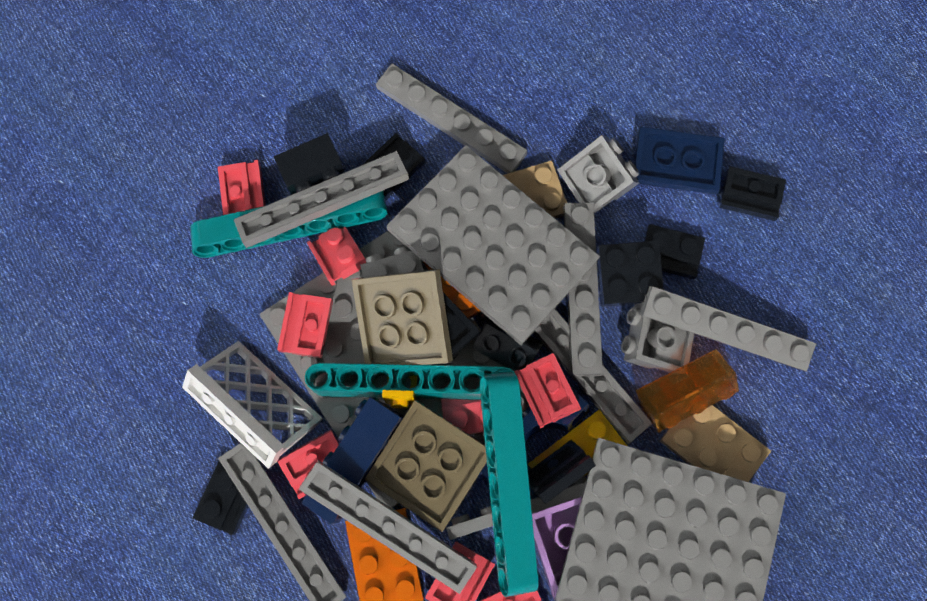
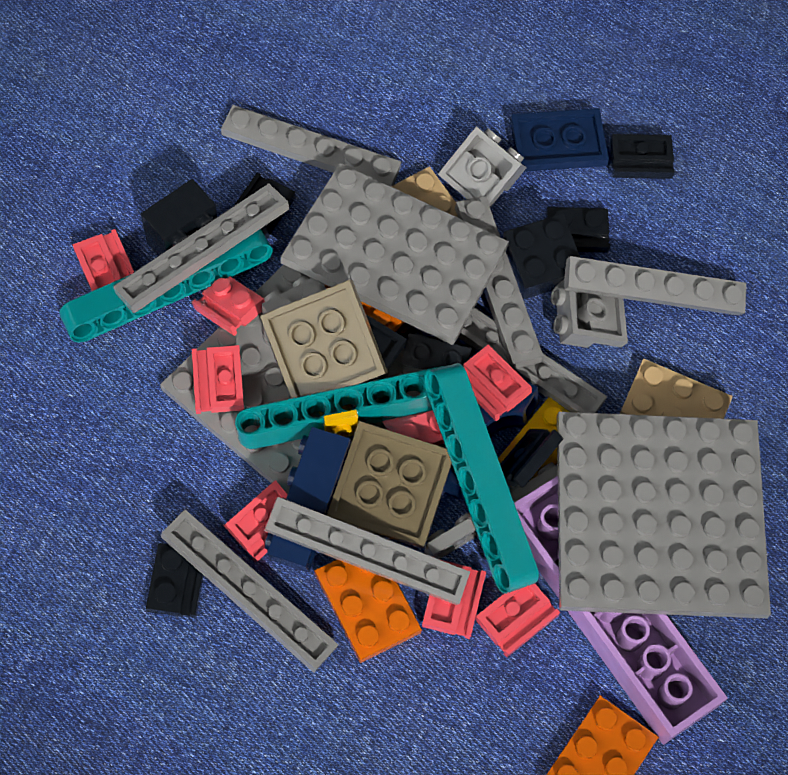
camera: 25 degrees left, 10 degrees down
(230, 413) = (175, 484): white fence -> none
(688, 390) = (633, 354): clear orange brick -> none

